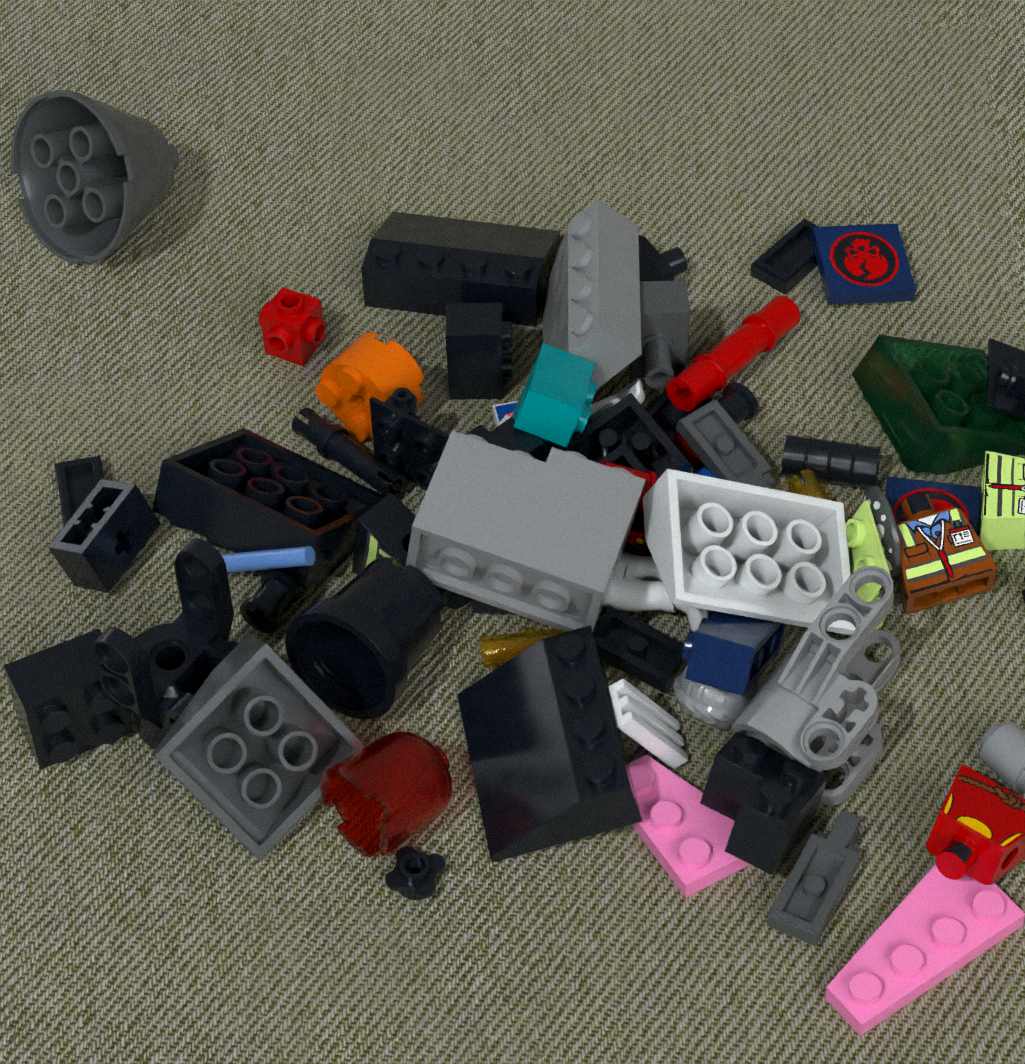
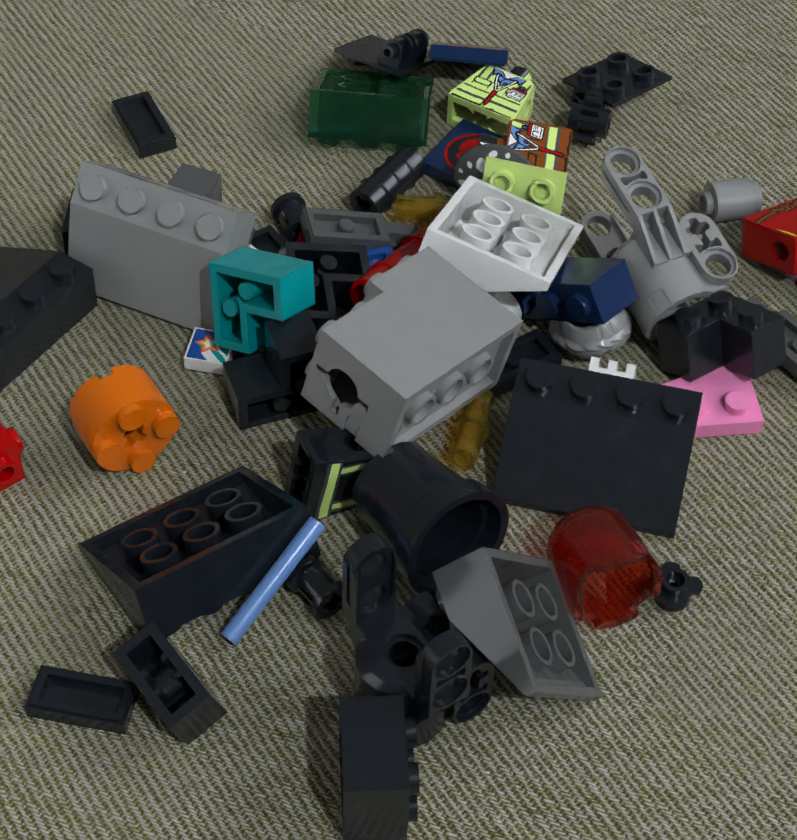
camera: 70 degrees left, 0 degrees up
(335, 444) = (172, 473): black pin -> none
(403, 439) = (216, 416): black hinge -> none
(476, 350) = (120, 332): black brick -> none
(733, 353) = (242, 189): red piece -> none
(862, 264) = (190, 88): tile -> none

